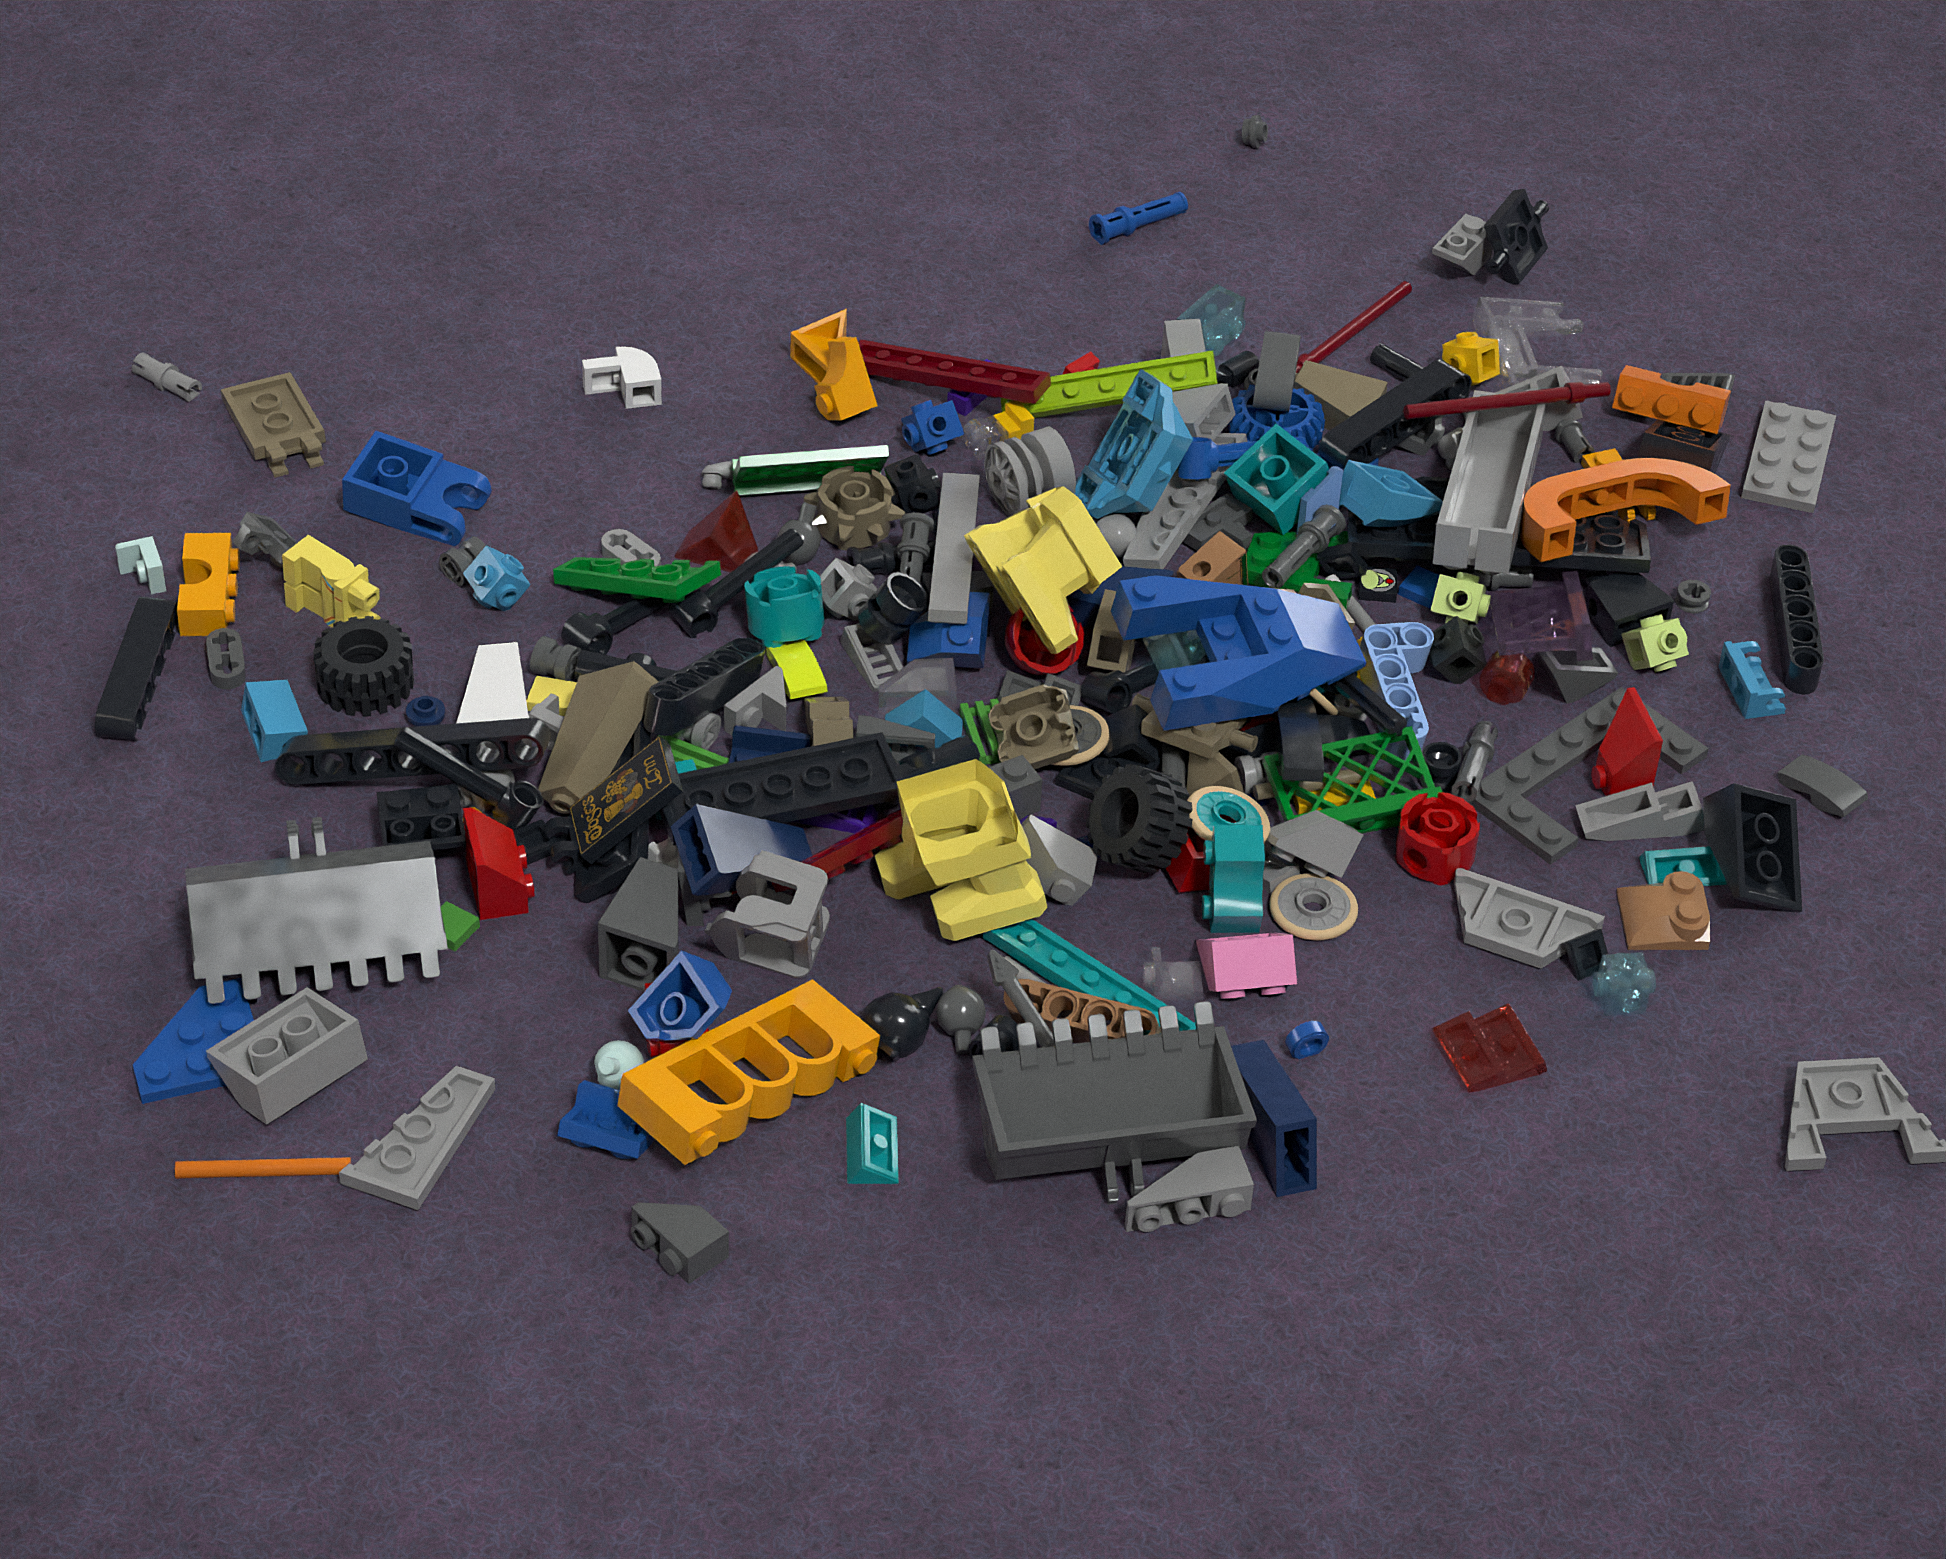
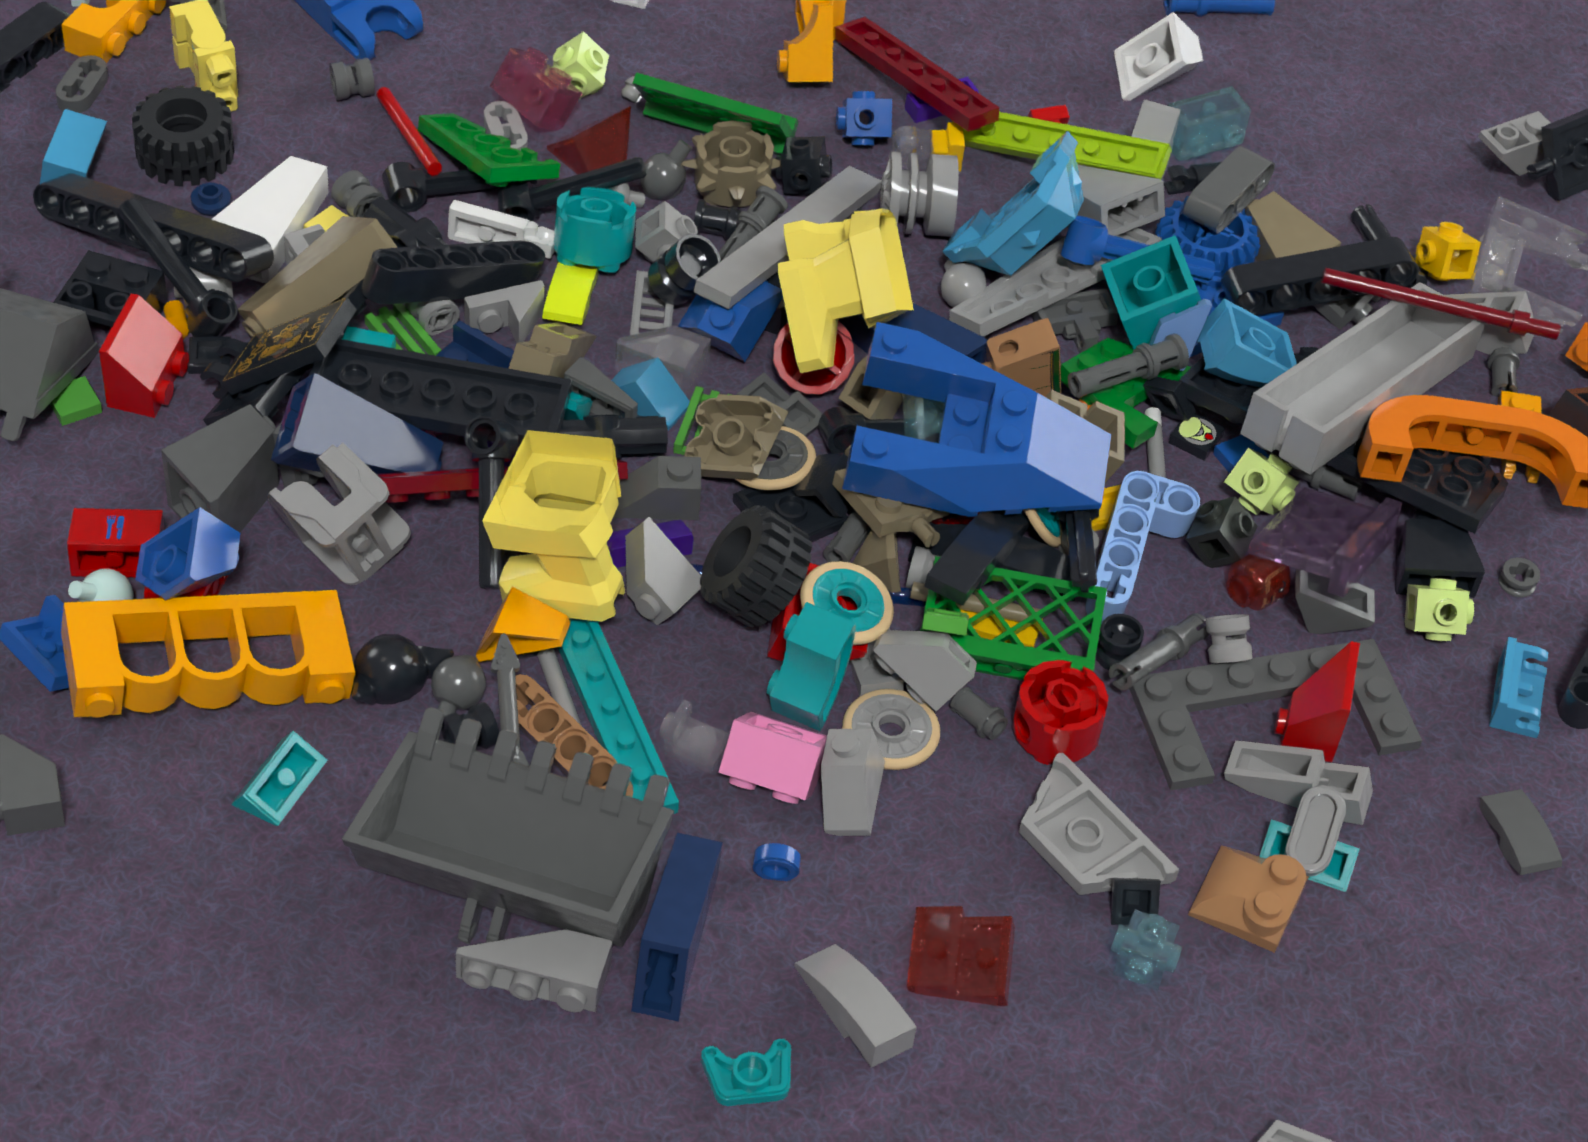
camera: 25 degrees right, 5 degrees up
(496, 579) = (361, 104): dark azure brick -> none
(569, 592) = (409, 131): none -> red bar
(590, 1019) = (110, 538): none -> red brick
(637, 506) = (536, 88): none -> clear pink brick
(657, 474) = (583, 62): none -> yellowish green brick
(693, 640) = (481, 225): none -> white hinge
(887, 858) = (491, 474): none -> black axle
(972, 942) = (527, 624): none -> light orange slope
(1125, 284) = (1156, 56): none -> white slope
(1310, 802) = (946, 621): none -> bright green tile
(1320, 956) = (850, 781): none -> light grey slope
(1356, 325) = (1357, 180): dark red bar -> none
(1374, 867) = (980, 714): none -> dark grey pin
(1402, 1204) = (750, 1076): none -> teal piece
(1444, 1113) = (858, 1004): none -> light grey slope
(1520, 729) = (1232, 648): none -> light grey wheel
(1684, 841) = (1316, 828): none -> light grey tile
(1756, 845) = (1390, 867): black slope -> none

